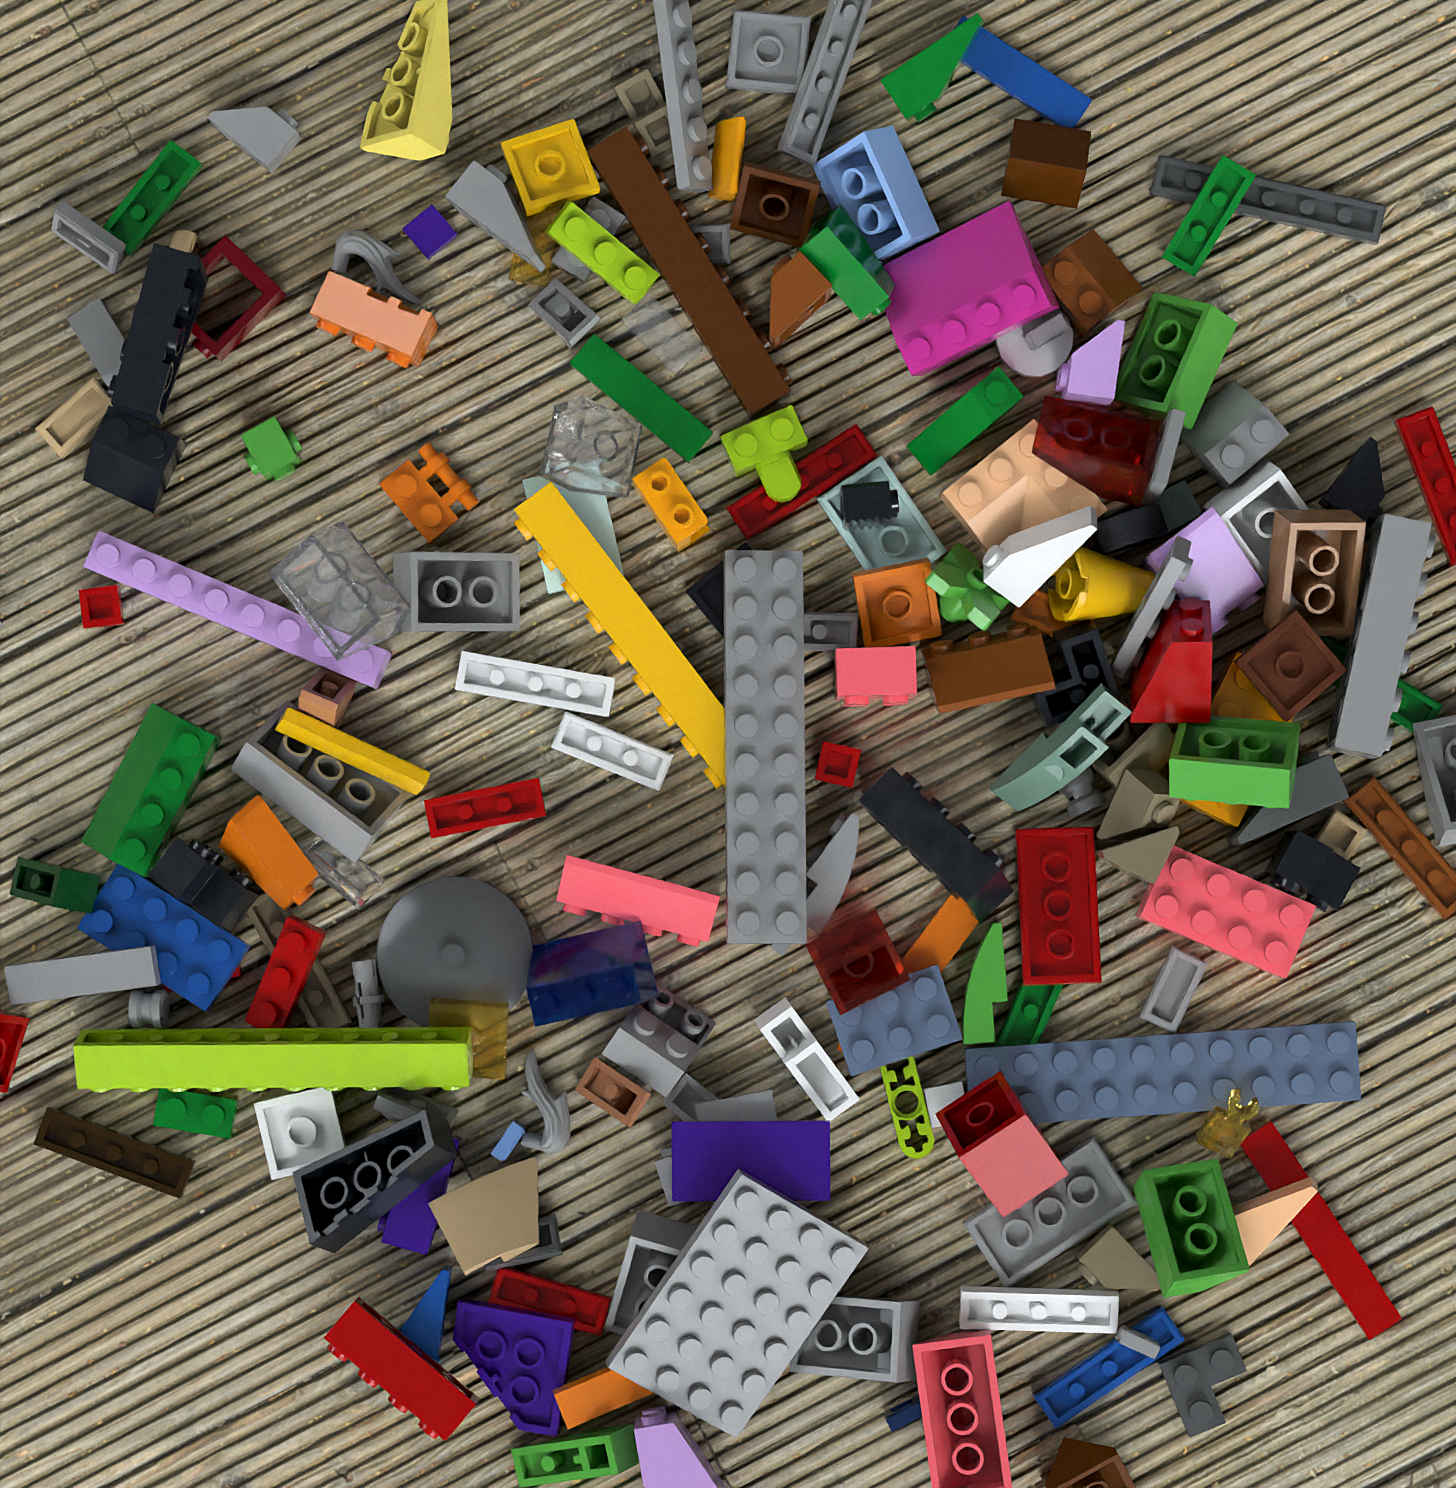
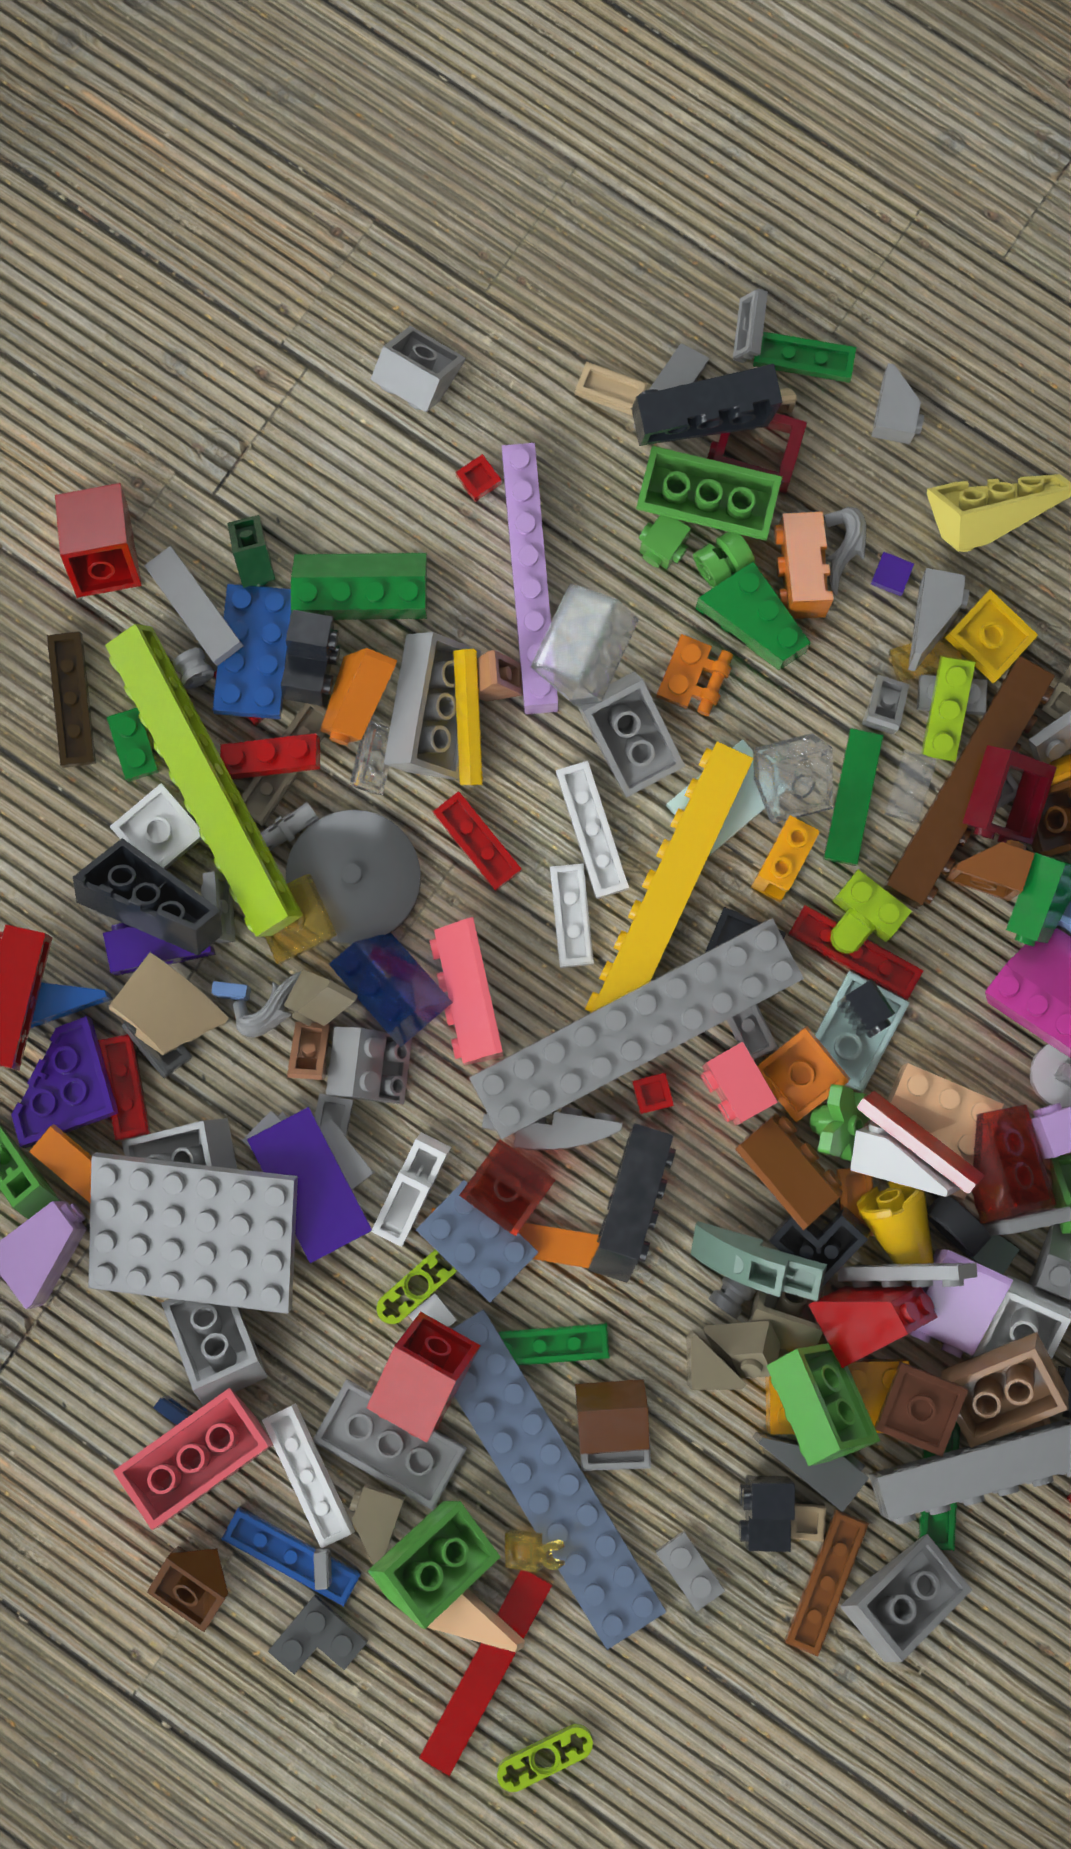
camera: 60 degrees right, 5 degrees down
(132, 459) = (602, 443): black slope -> none
(248, 378) = (709, 493): none -> bright green slope
(327, 385) = (723, 559): none -> bright green wheel
(400, 397) = (756, 616): none -> green wedge
(565, 1056) = (317, 999): none -> dark tan slope
(743, 226) = (1028, 801): none -> dark red window
(965, 421) = (972, 1053): green slope -> none
(983, 986) = (538, 1298): bright green slope -> none
(1028, 523) = (921, 1142): none -> tile
(1058, 906) = (633, 1324): red tile -> none
(1138, 975) = (612, 1417): none -> reddish brown slope
(1227, 912) = (699, 1462): coral brick -> none
(1328, 977) = (690, 1571): none -> light grey plate
(1442, 1186) = (517, 1761): none -> lime beam

